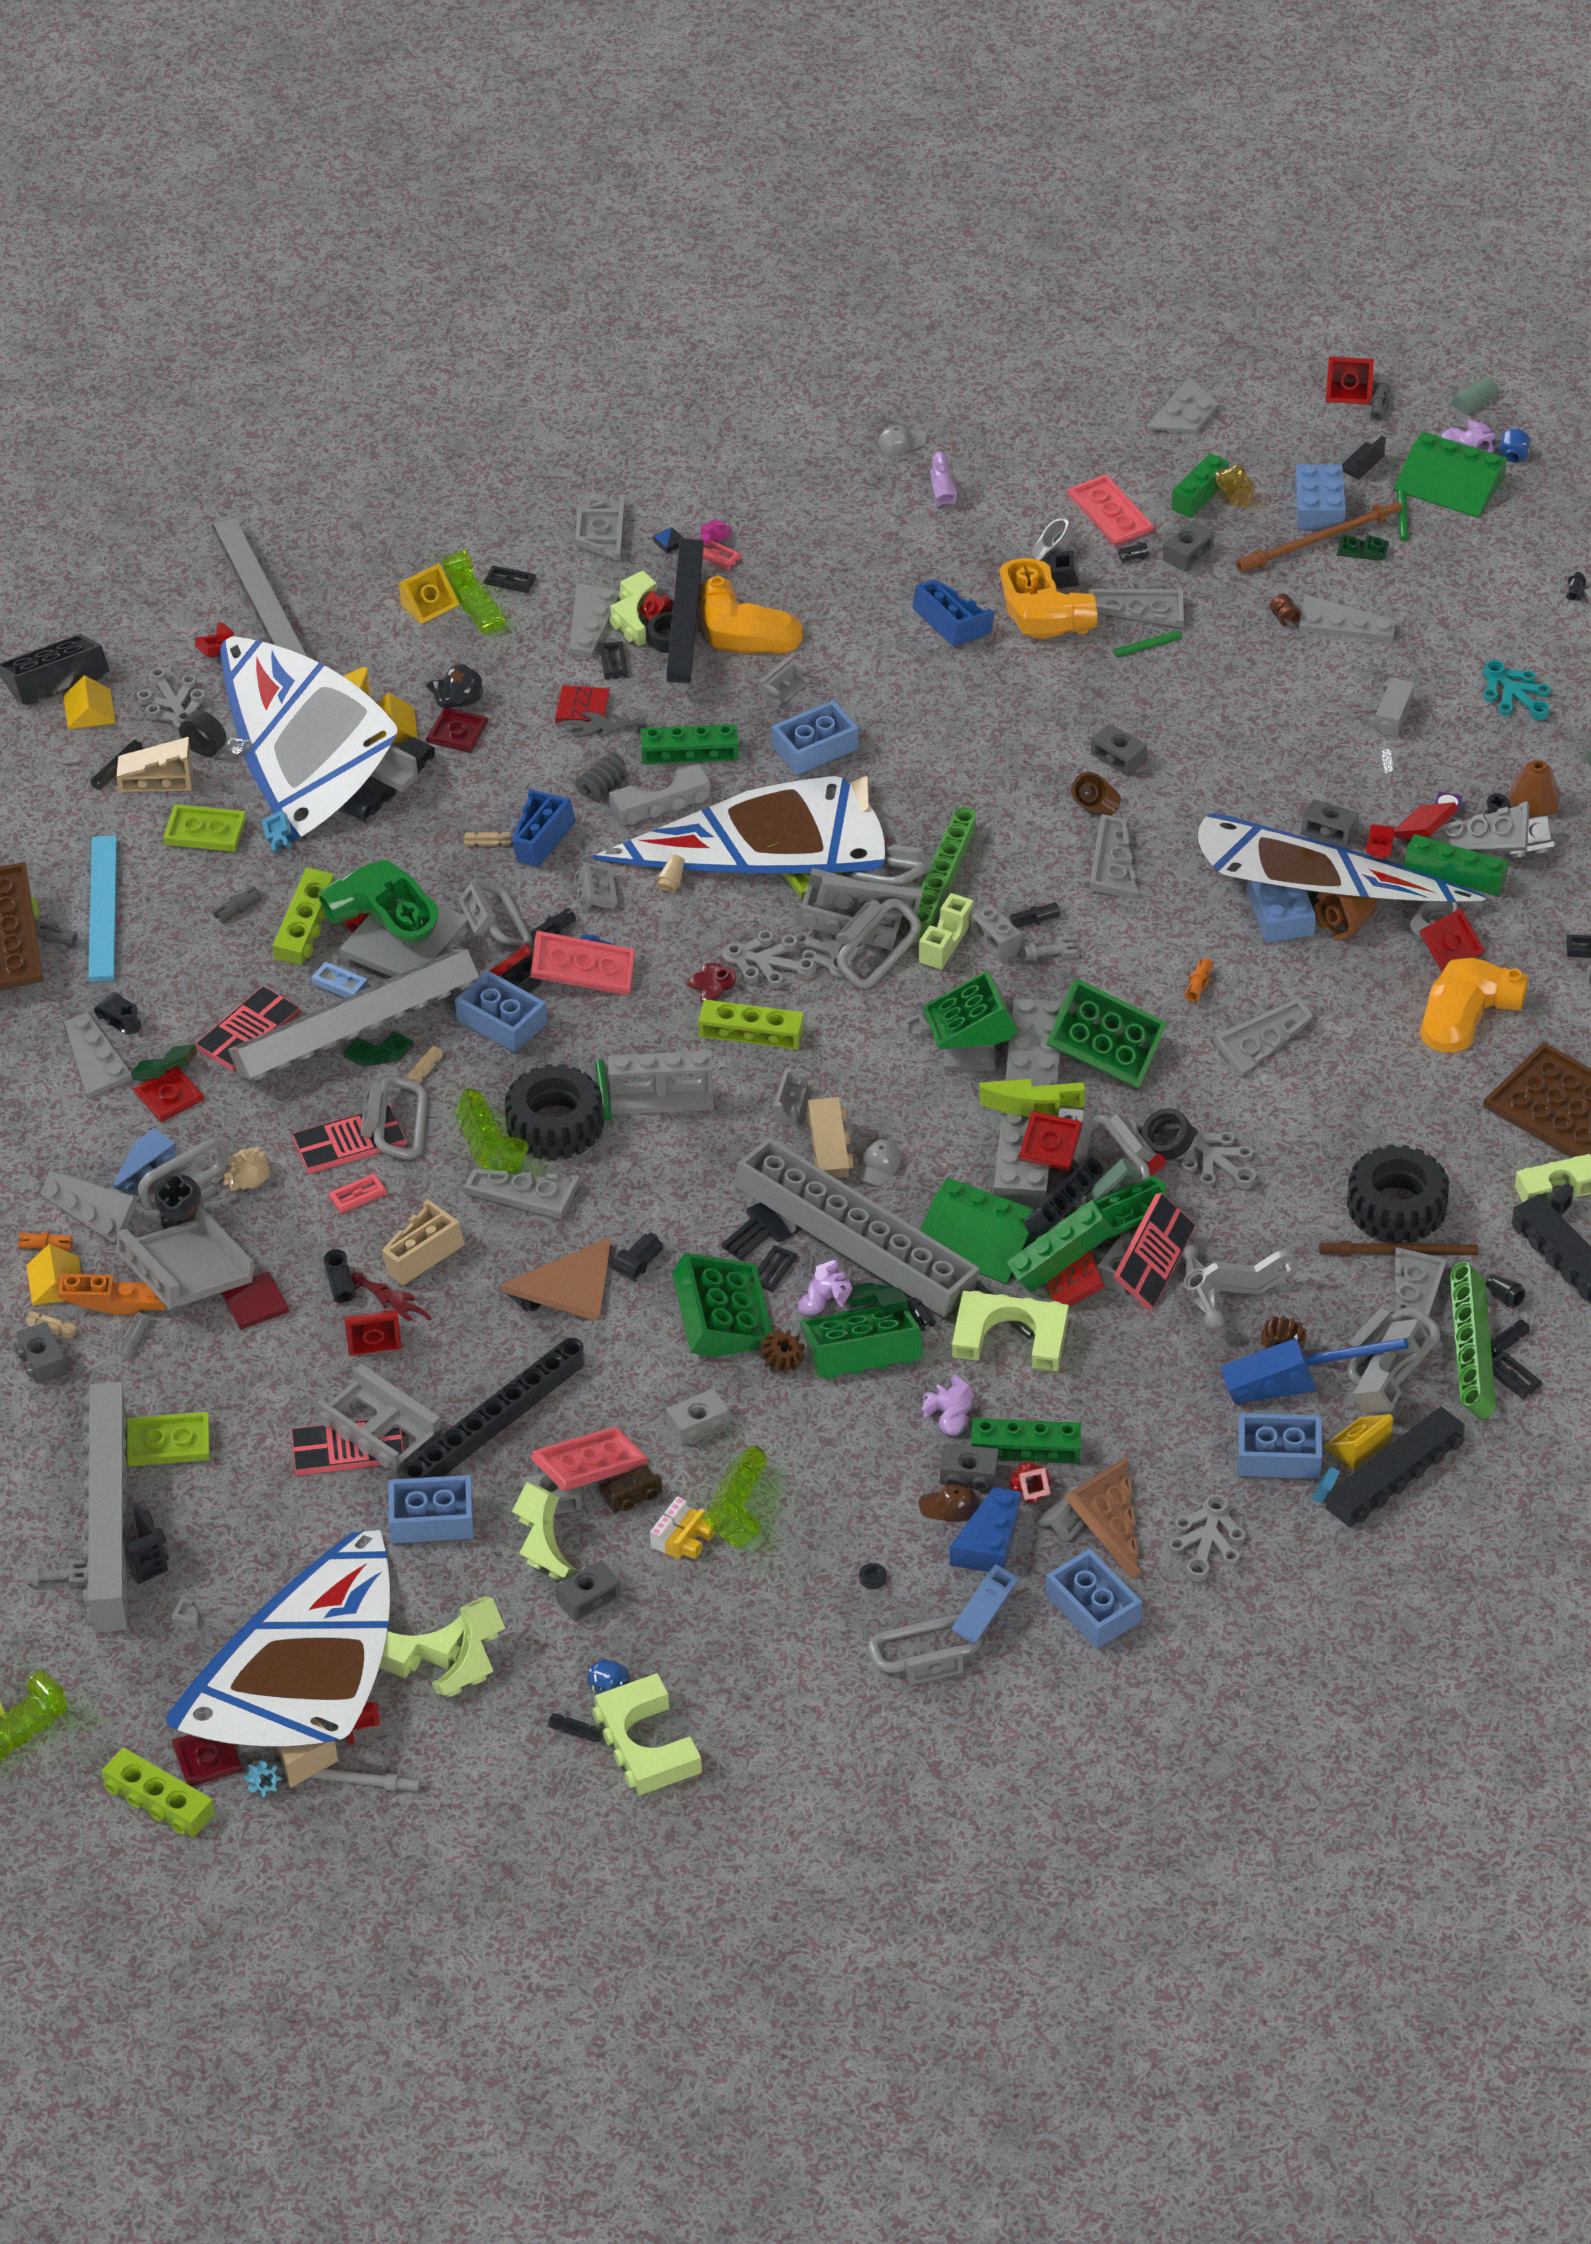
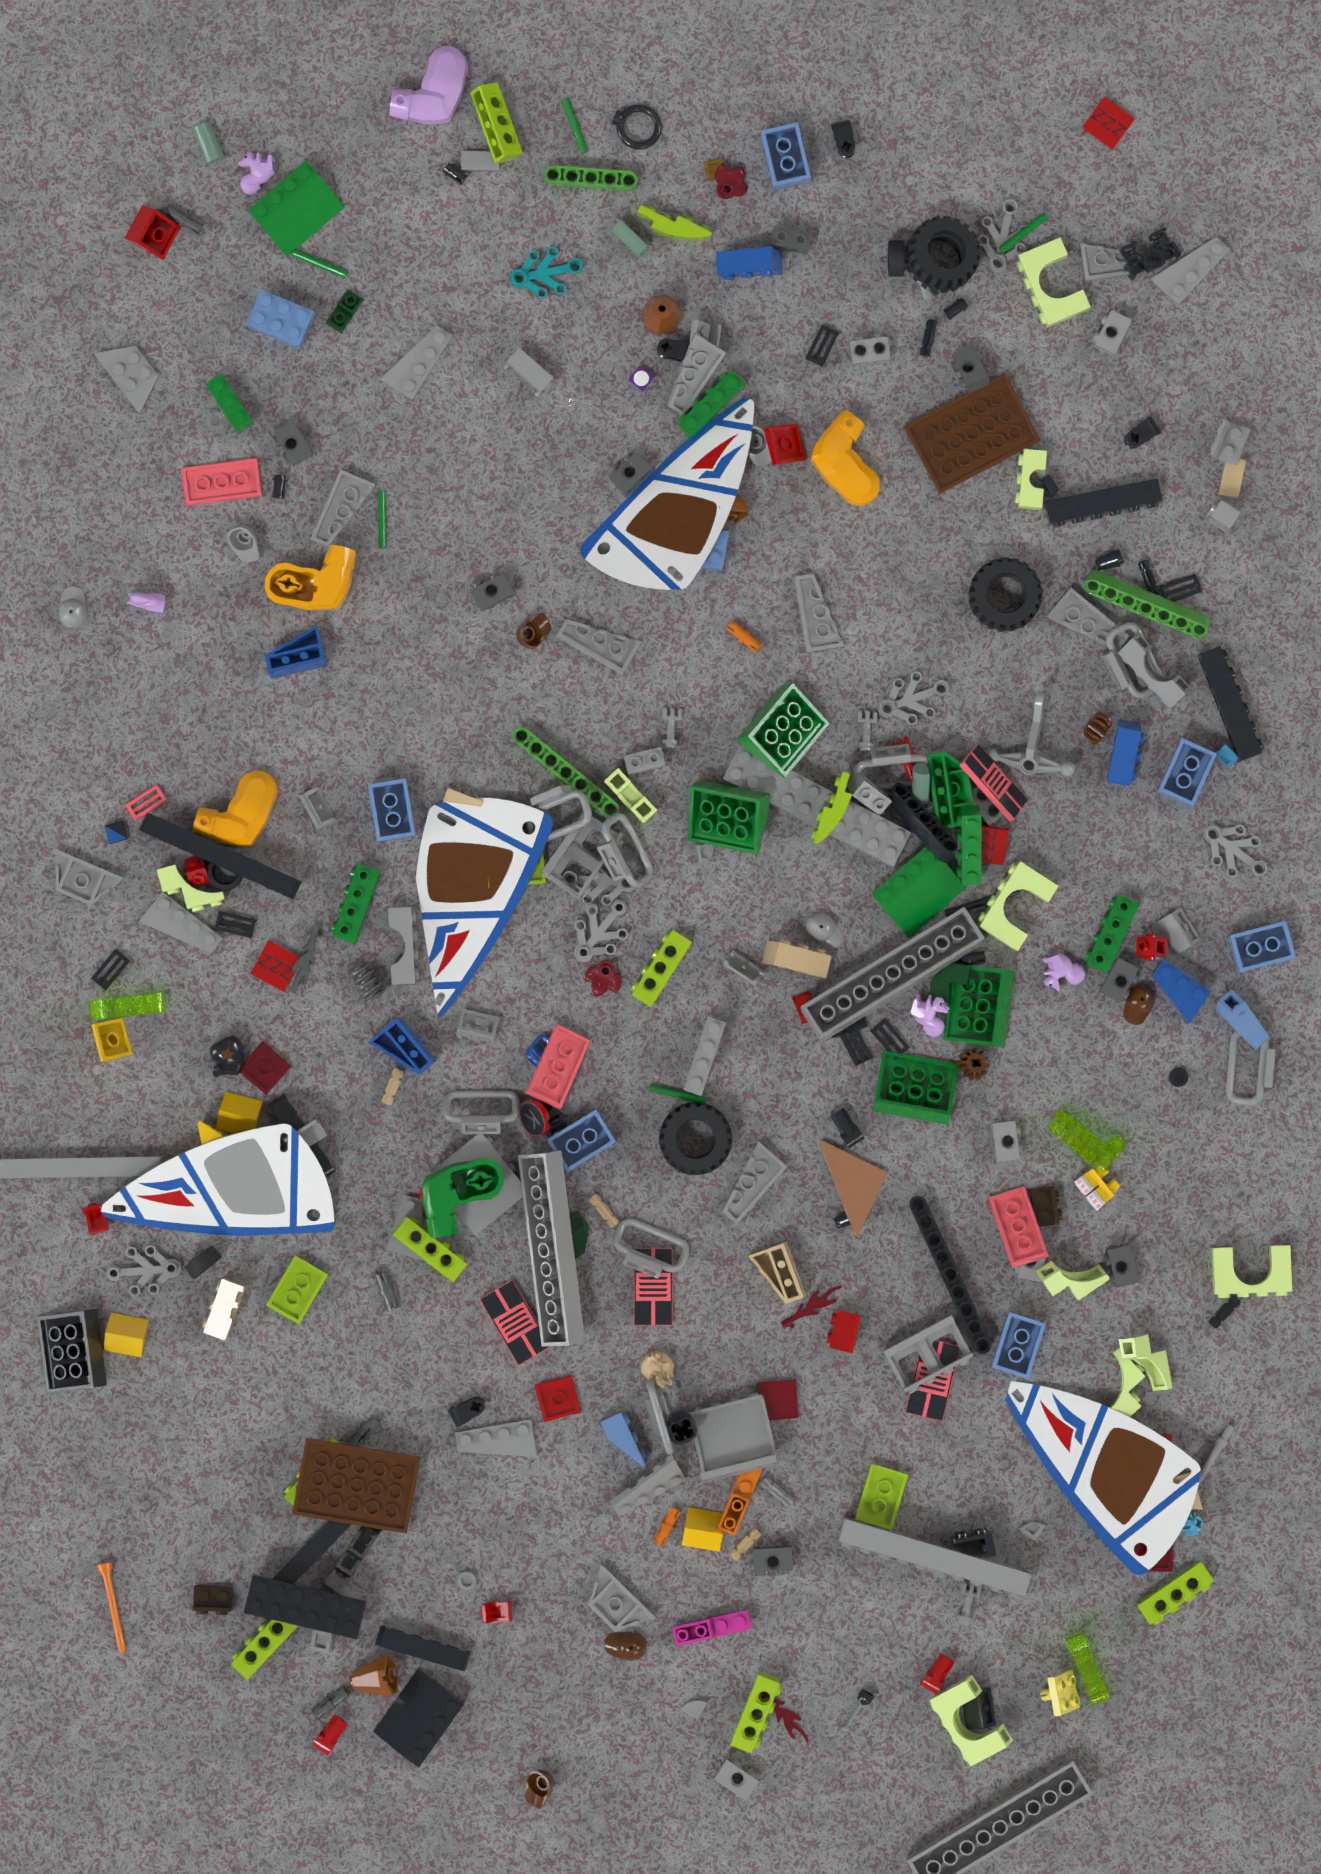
camera: 70 degrees left, 40 degrees up
(102, 909) = (349, 1389): medium azure tile -> none
(109, 771) = (198, 1333): black axle -> none
(154, 1068) = (531, 1384): dark green tile -> none
(235, 748) = (219, 1240): clear tile -> none
(276, 829) = (321, 1237): dark azure plate -> none
(338, 980) = (497, 1243): light blue piece -> none
(339, 1276) = (786, 1337): black piece -> none
(359, 1196) = (704, 1281): coral tile -> none
(483, 1137) = (692, 1190): clear neon green beam -> none
(556, 923) = (503, 1072): black axle -> none
(607, 1676) = (1198, 1278): blue head -> none
(671, 874) = (489, 969): tan cone -> none
(715, 531) = (123, 795): dark pink plate -> none
(851, 895) = (586, 848): light grey wing -> none
(1035, 915) = (632, 724): black axle -> none
(1050, 1141) = (878, 814): red tile -> none
(1064, 569) = (285, 550): black brick -> none
(1108, 1512) = (1191, 906): nougat tile -> none
(1161, 1118) = (883, 711): black tyre -> none
(1236, 485) = (244, 378): clear yellow piece -> none
(1260, 558) = (326, 394): dark orange bar -> none
(1284, 609) = (392, 402): copper wheel -> none
(1346, 1248) = (1029, 647): reddish brown bar -> none
(1357, 1351) = (1133, 687): blue bar -> none
(1361, 1439) = (1195, 716): yellow slope -> none
(1365, 458) = (245, 264): black panel -> none
(1380, 841) = (665, 447): red bracket -> none
(1425, 820) = (659, 406): red tile -> none
(1514, 445) = (281, 142): blue head -> none

